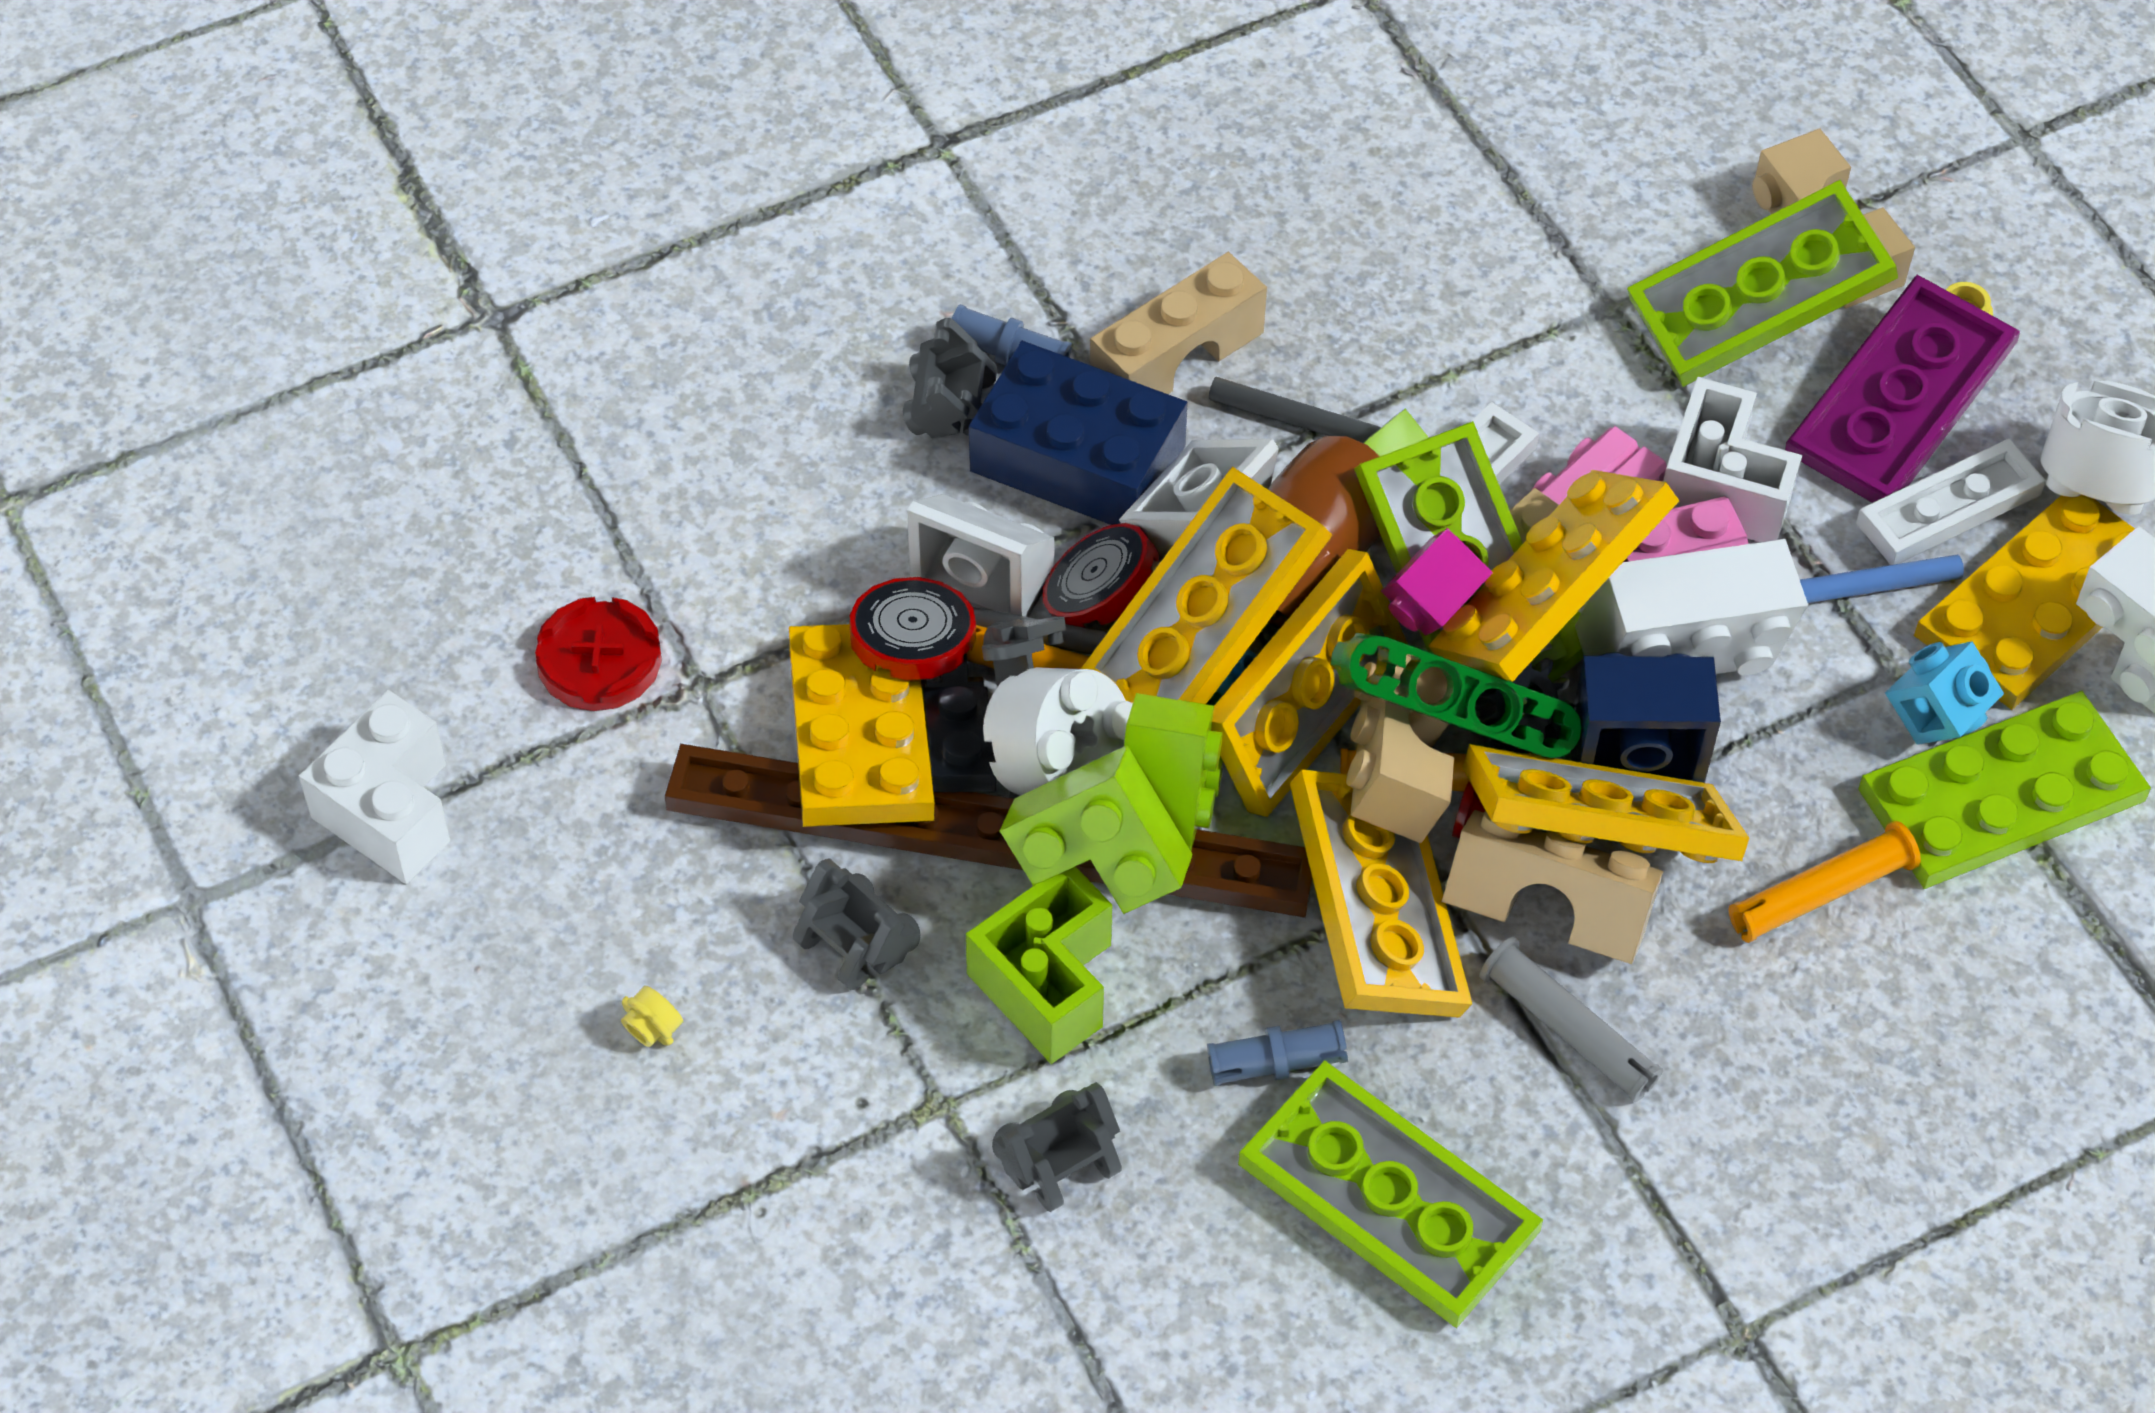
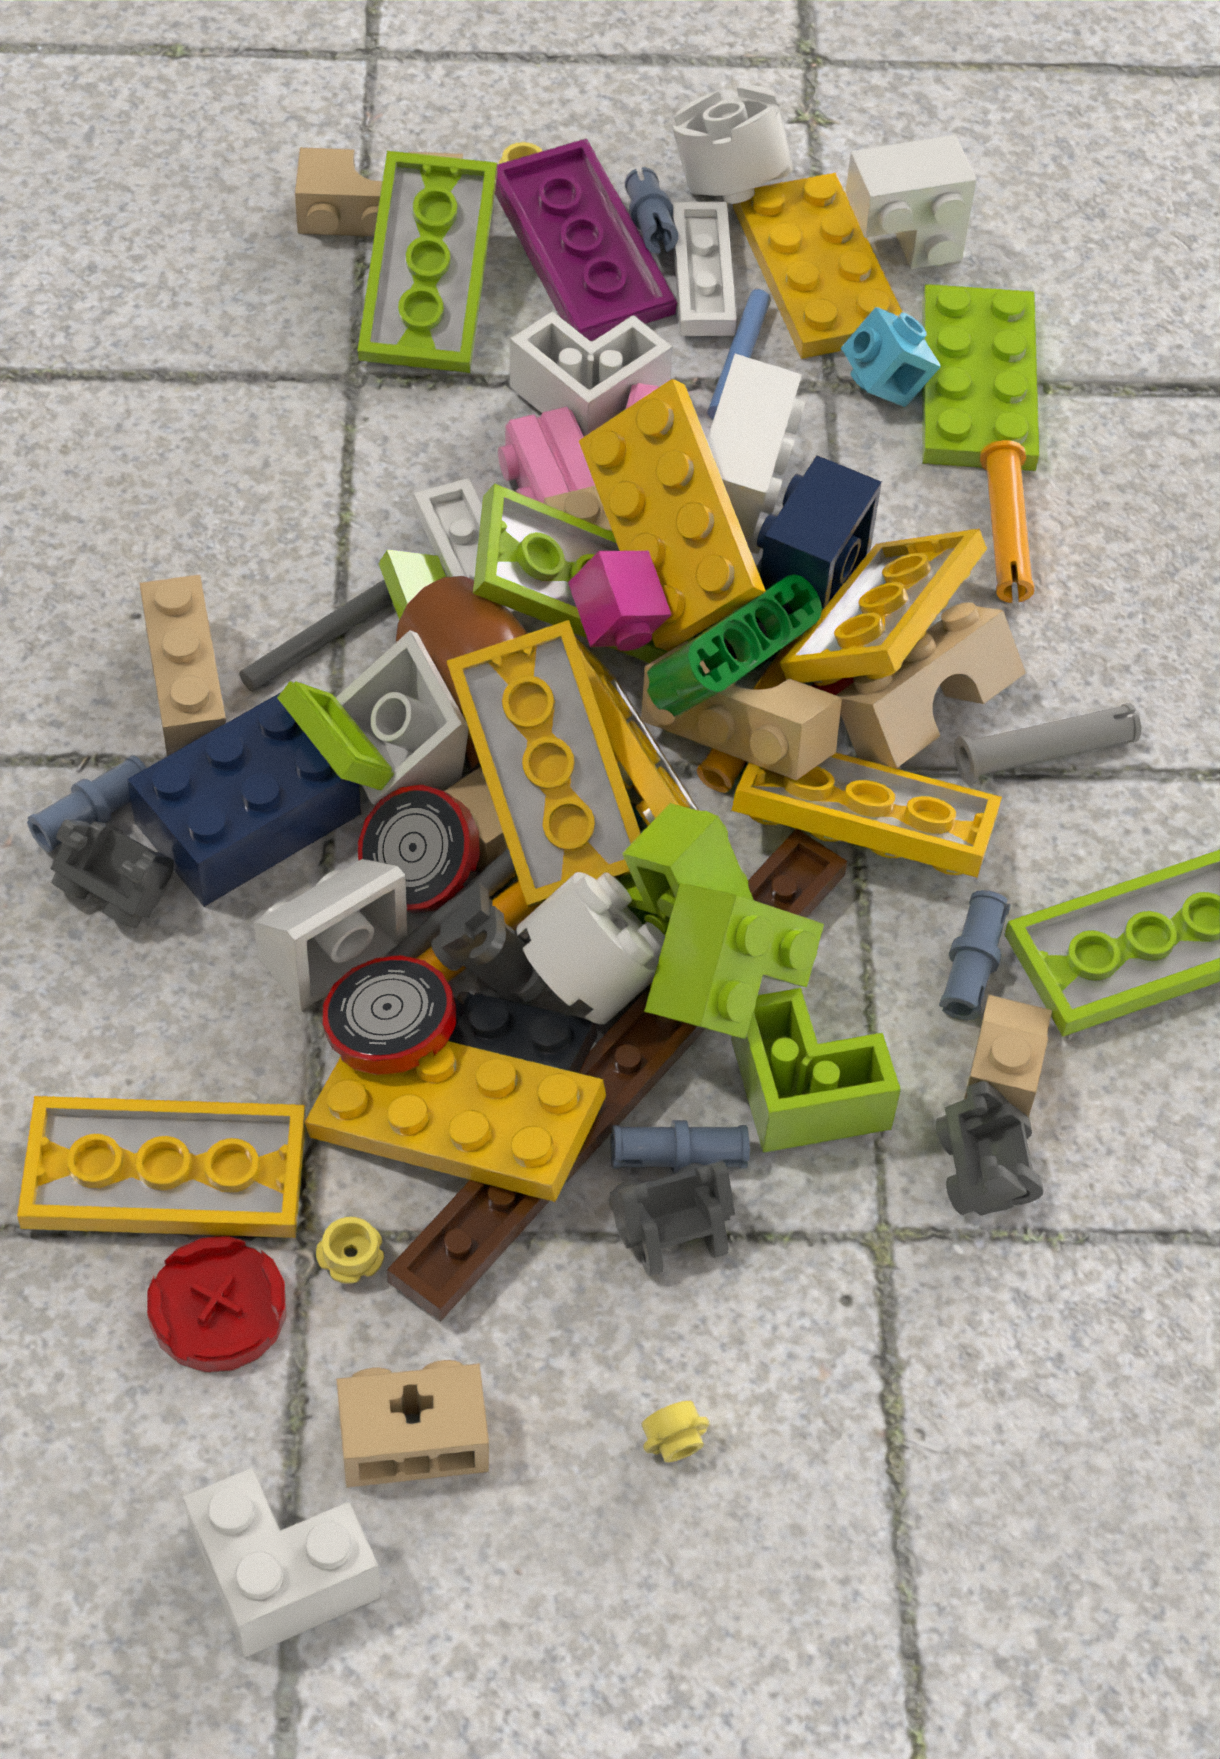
camera: 65 degrees left, 0 degrees up
(554, 826) = (443, 1444): none -> tan brick
(690, 703) = (345, 1234): none -> light yellow plate
(695, 556) = (163, 1167): none -> yellow piece
(926, 902) = (679, 1146): none -> sand blue pin
(1151, 452) = (336, 735): none -> lime tile
(1175, 1121) = (1011, 1050): none -> tan arch
(1985, 426) = (651, 210): none -> sand blue pin

